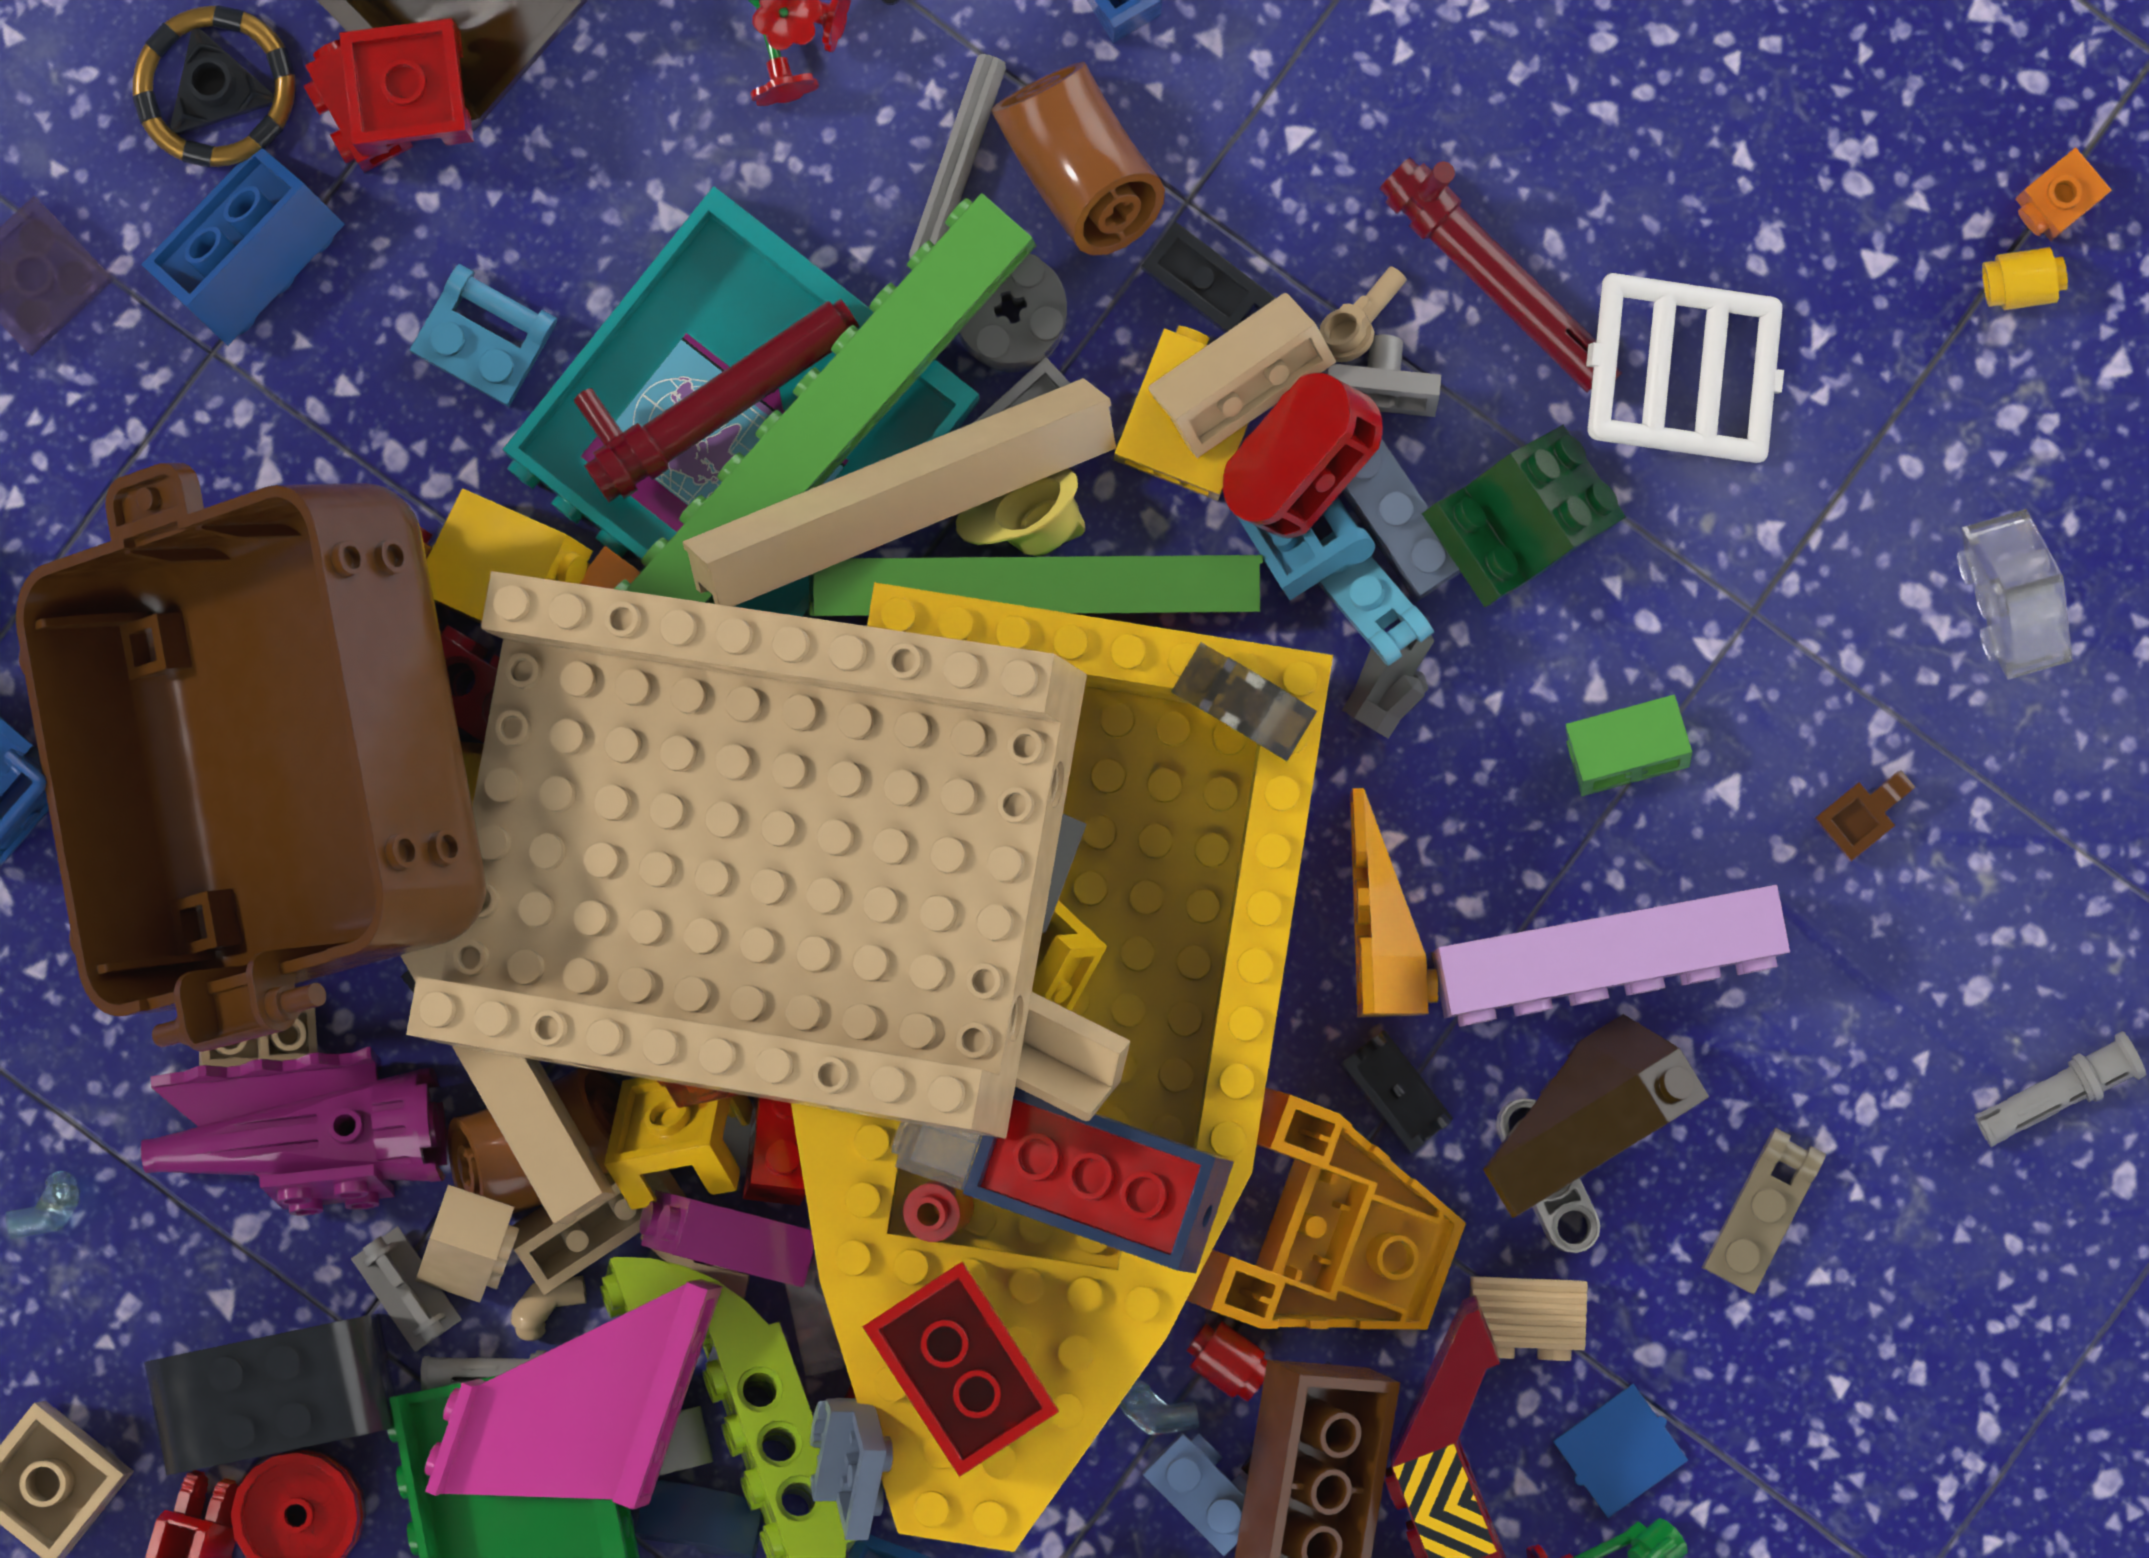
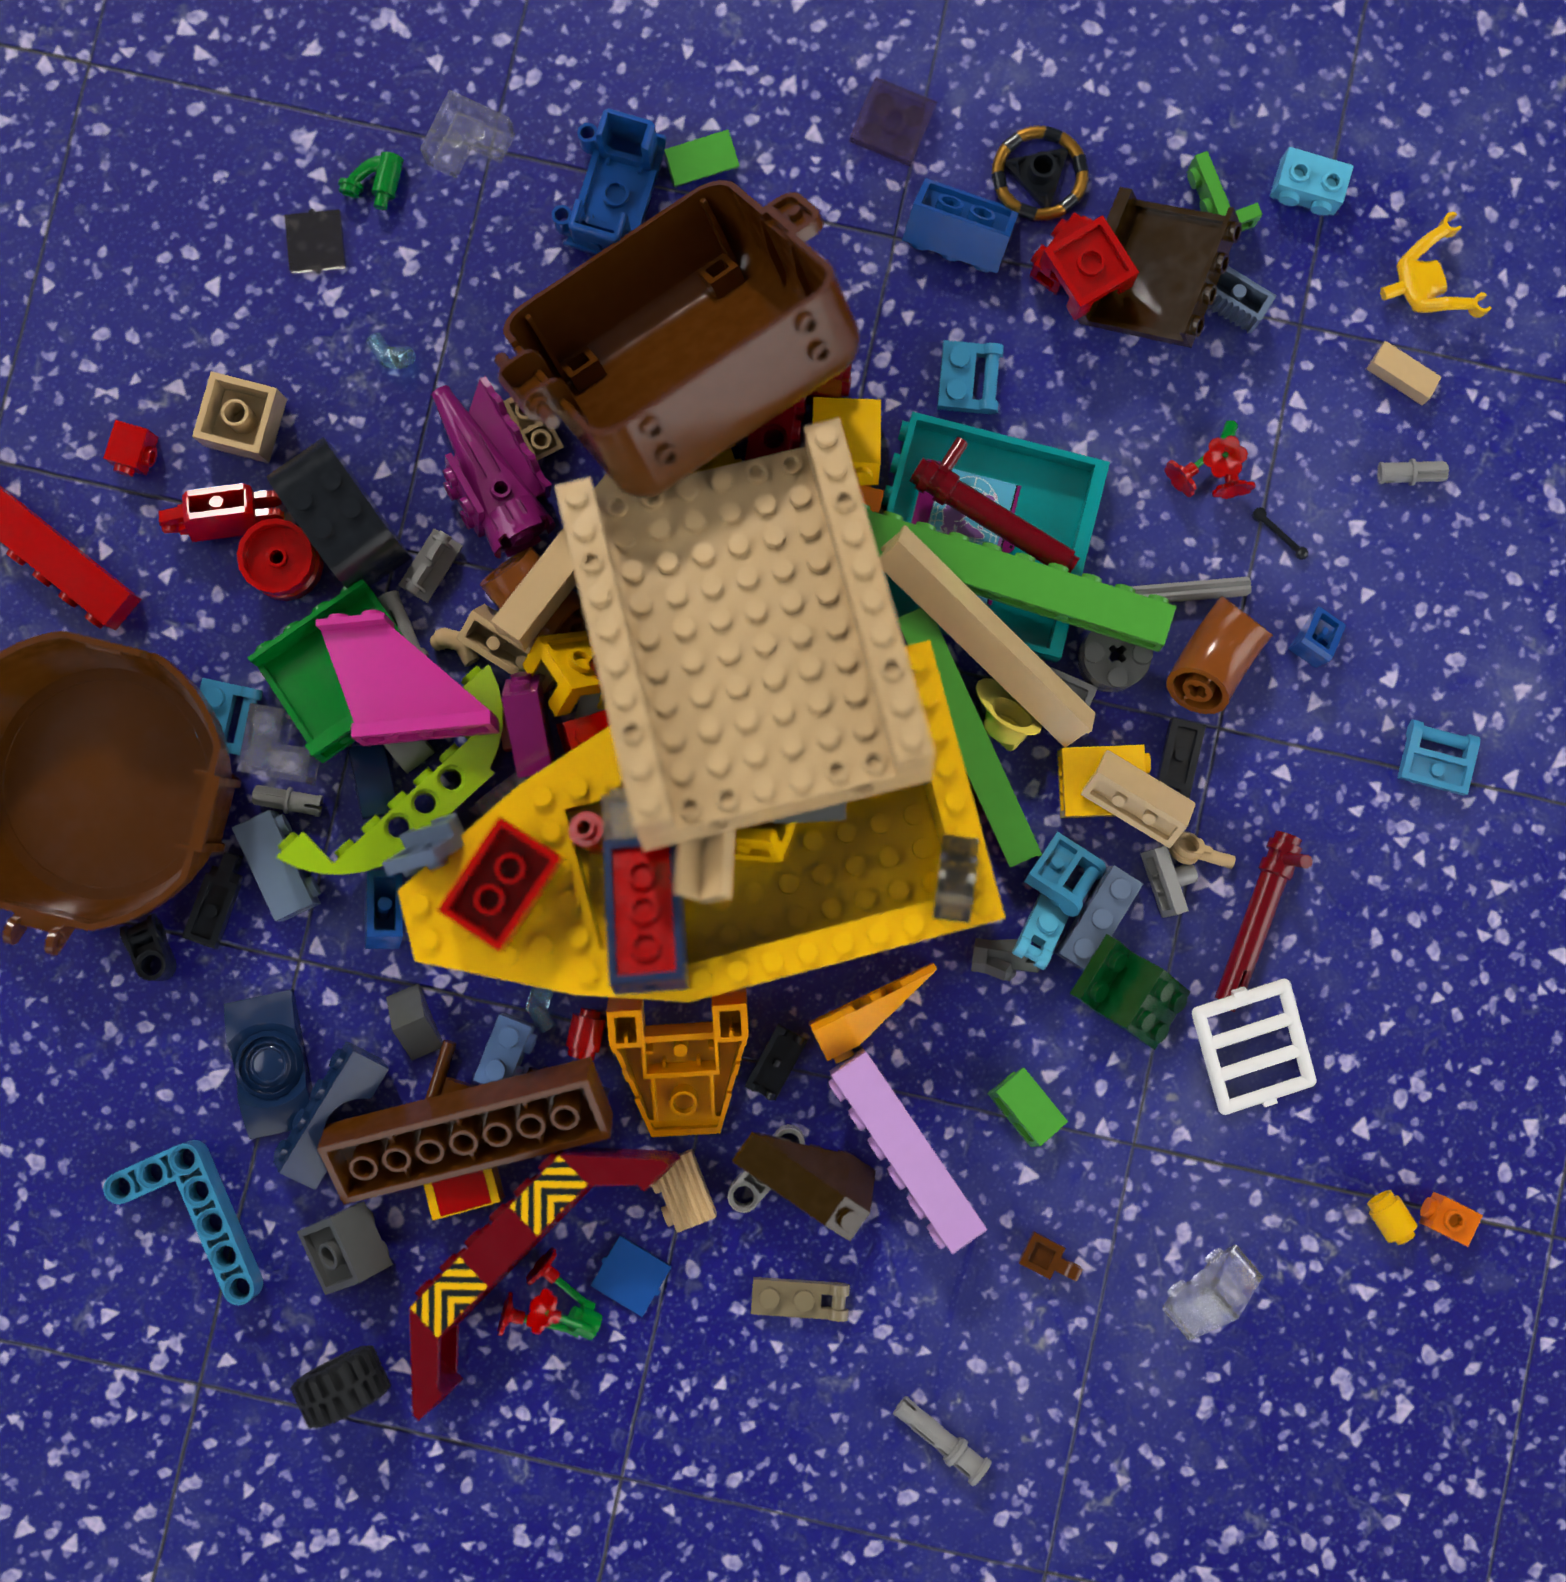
camera: 65 degrees right, 0 degrees up
(468, 1244) = (463, 582): tan brick -> none
(1302, 455) = (1109, 852): red brick -> none

